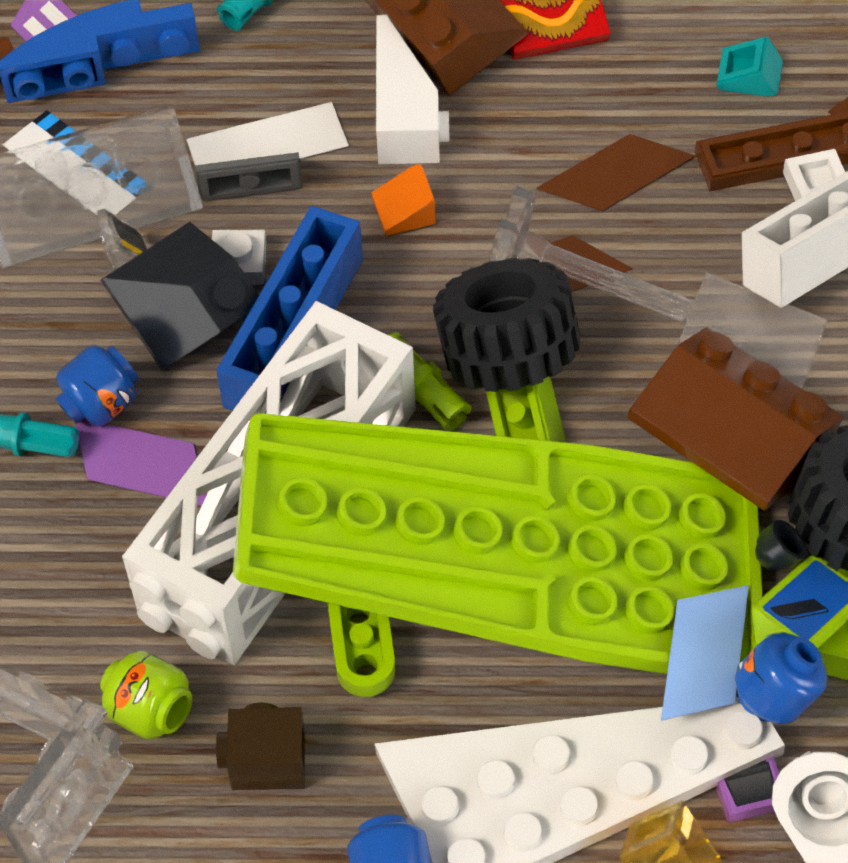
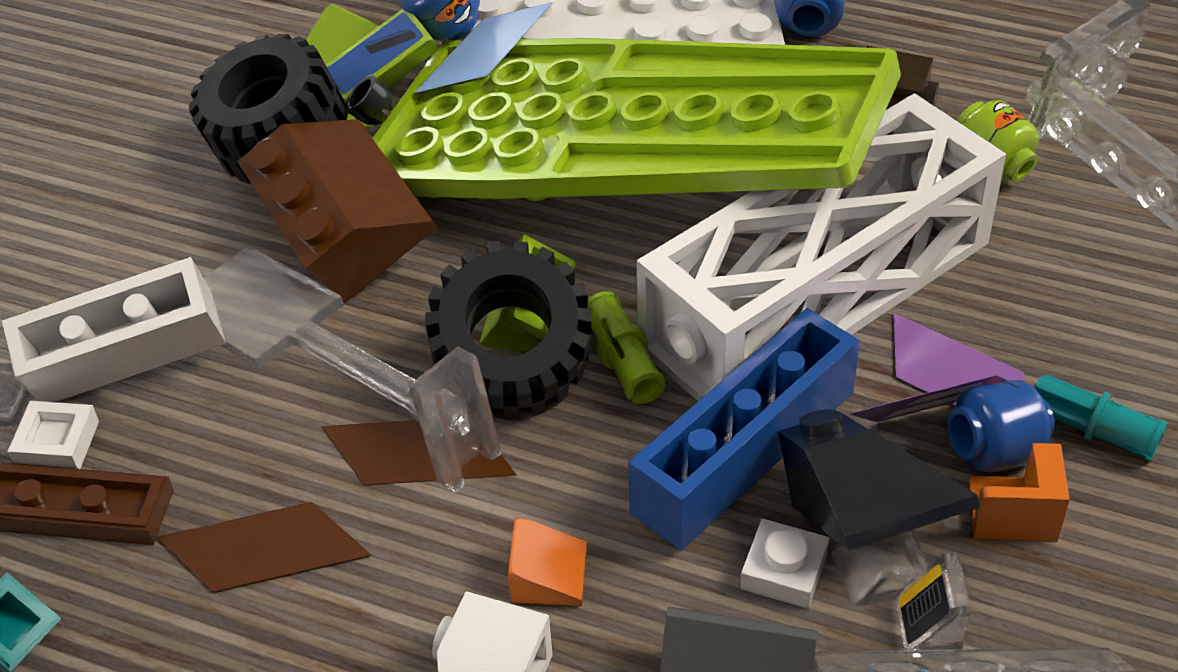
camera: 160 degrees left, 10 degrees down
(71, 329) = (1023, 506): none -> orange panel
(150, 392) = (922, 401): none -> medium lavender sticker

